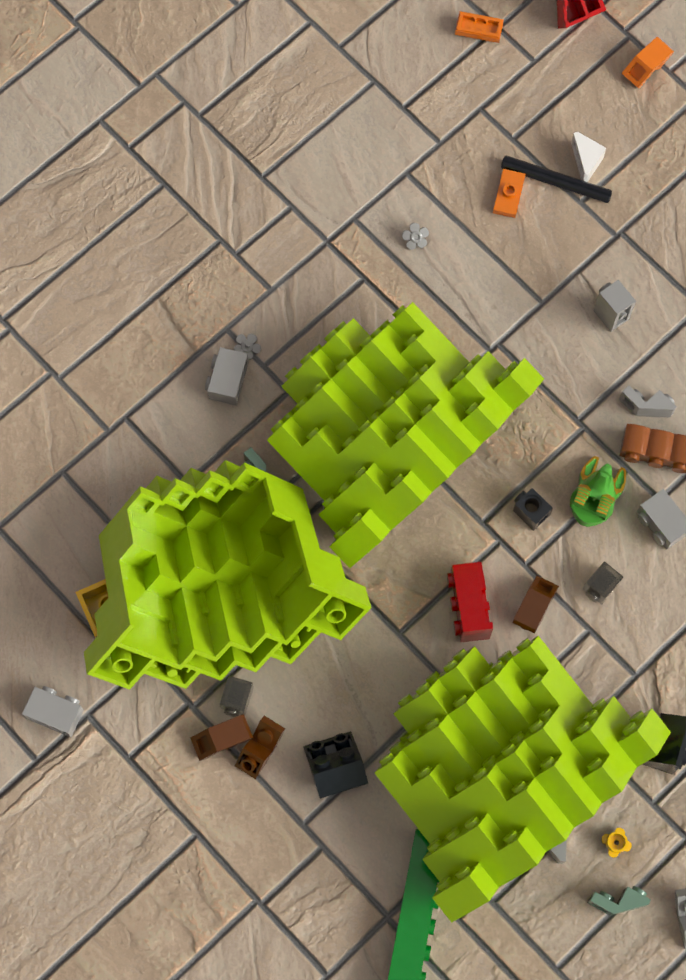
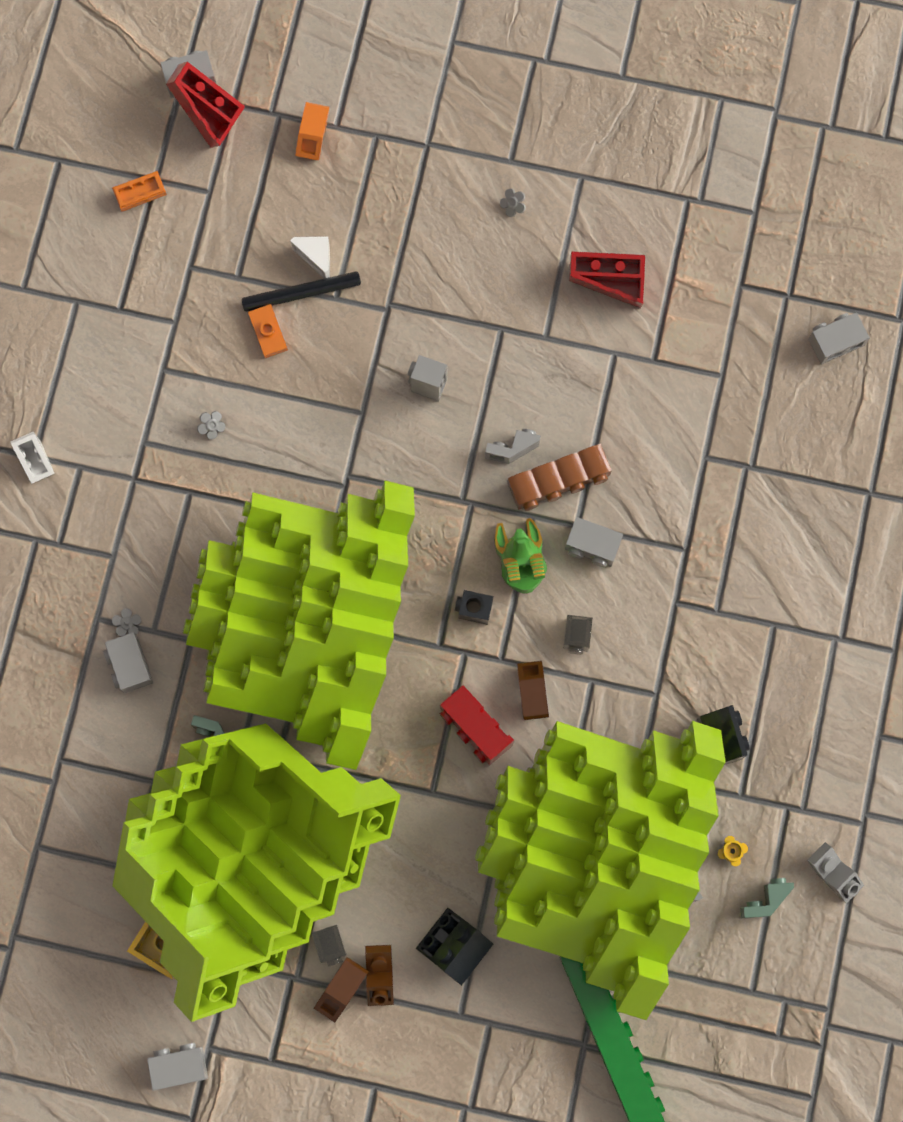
camera: 35 degrees left, 5 degrees up
(260, 174) = (32, 457): none -> white slope

